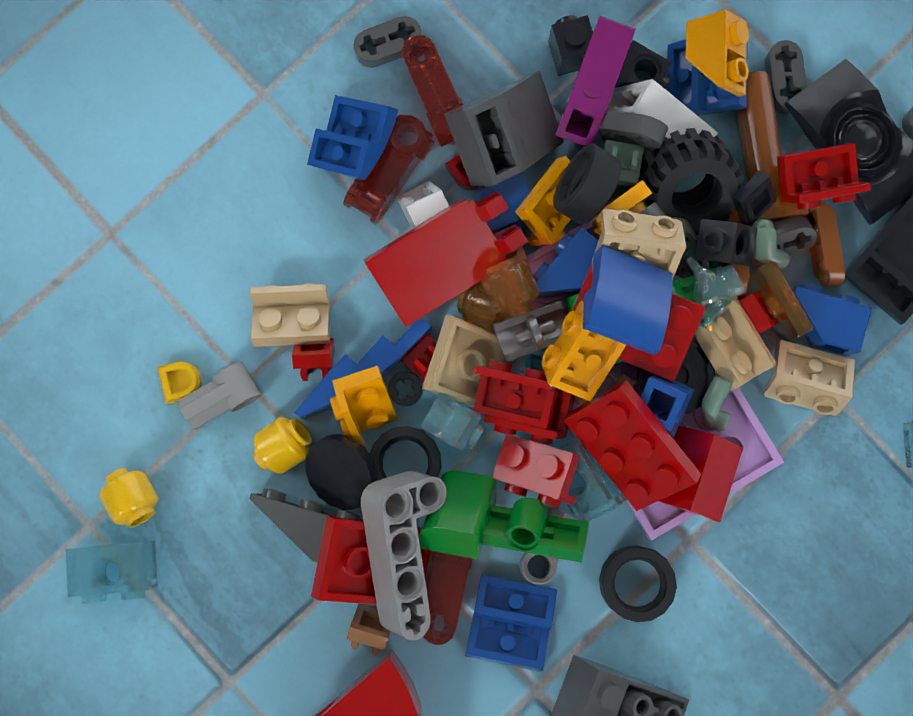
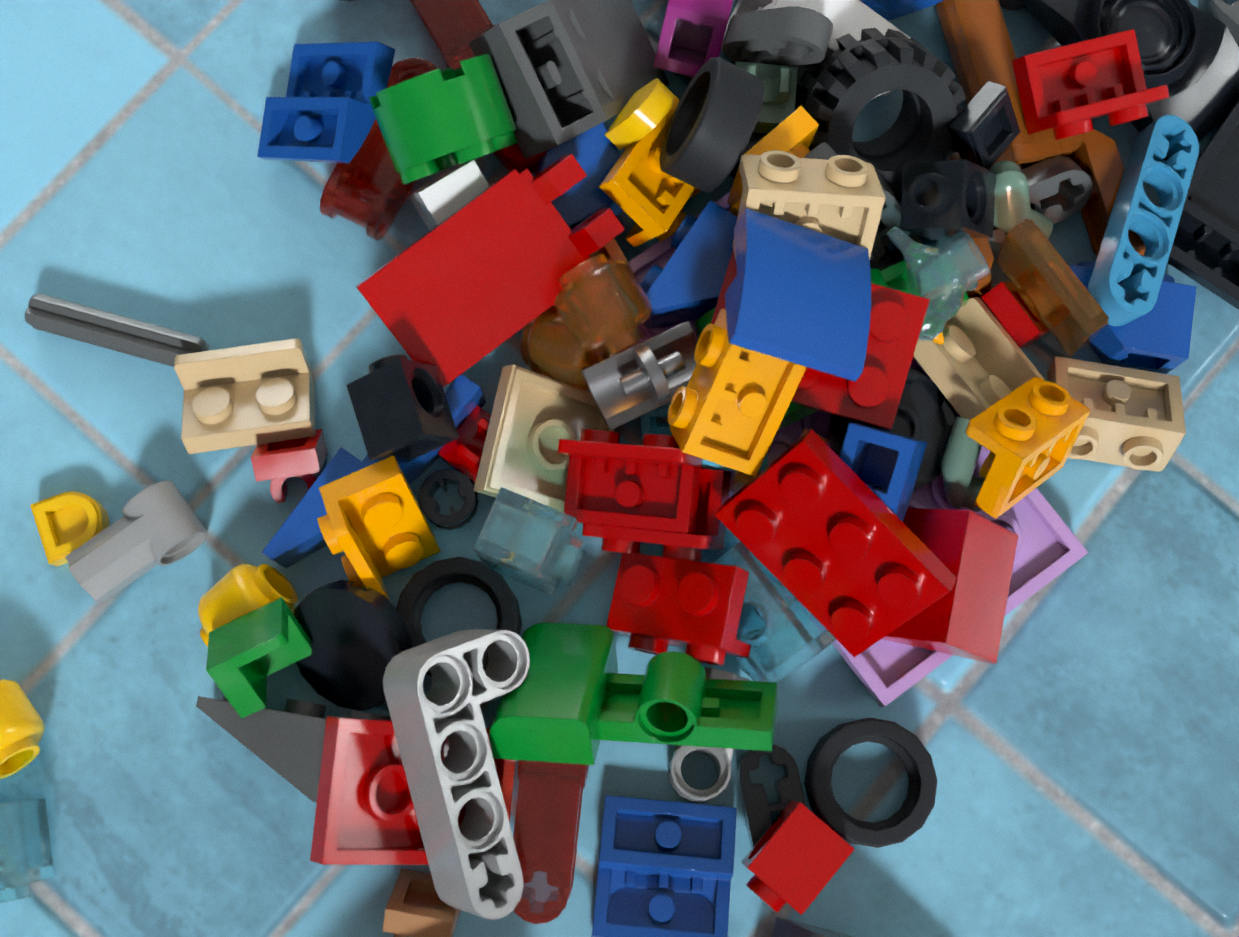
camera: 10 degrees left, 5 degrees down
(212, 265) = (110, 330): none -> dark grey axle
(283, 469) = (250, 650): none -> green panel
(384, 337) = (401, 409): none -> black brick
(426, 160) = (444, 118): none -> green brick
(545, 168) = (640, 114): none -> yellow tile
(588, 624) = (795, 859): none -> red brick
(589, 591) = (754, 795): none -> black beam
(753, 393) = (1028, 441): none -> light orange bracket
(851, 267) = (1154, 224): none -> dark azure beam

